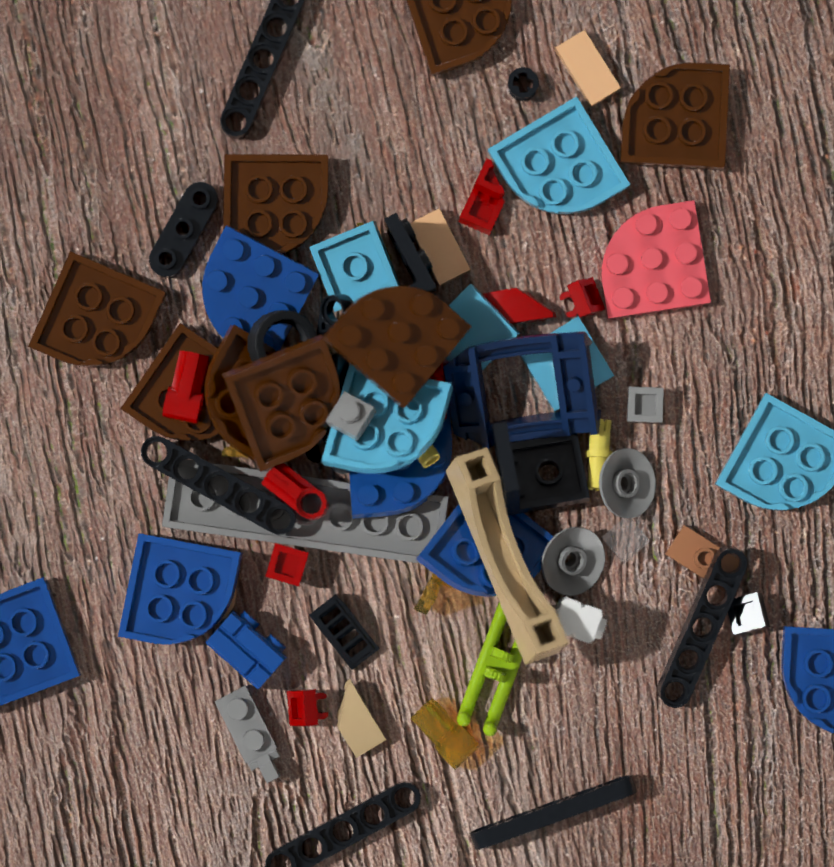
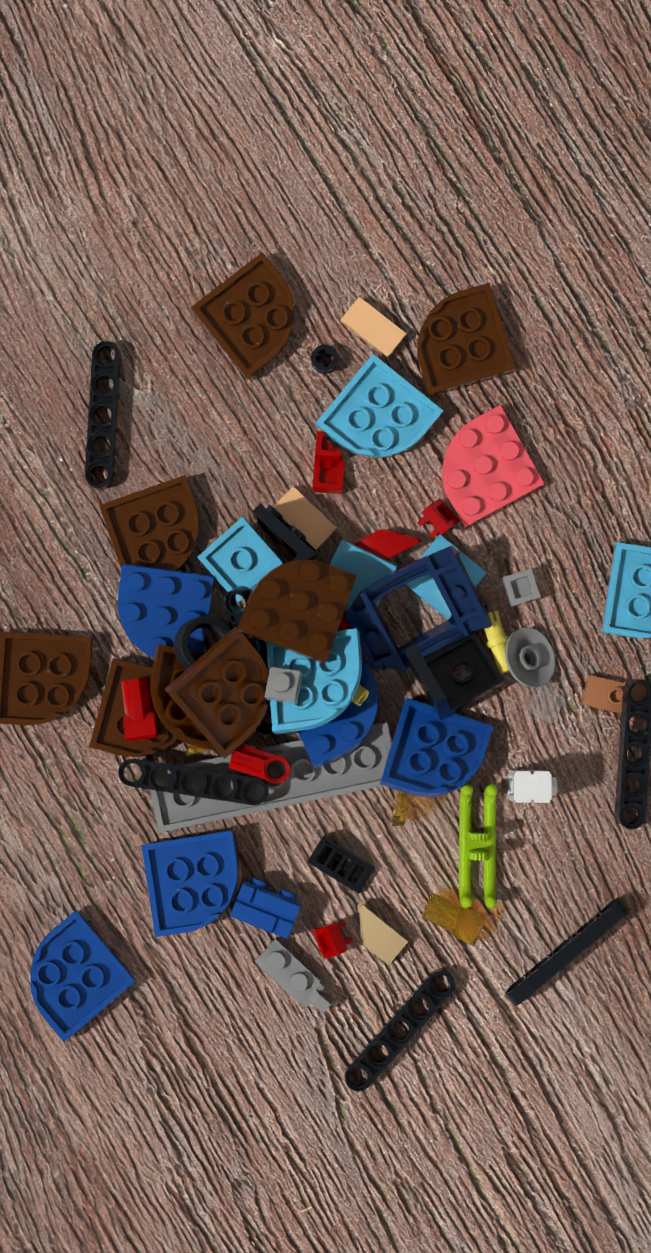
camera: 25 degrees left, 0 degrees up
(183, 245) = (91, 593): black plate -> none
(287, 564) = (274, 826): red tile -> none
(524, 606) = (489, 795): tan arch -> none
(584, 565) = (518, 738): light grey dish -> none

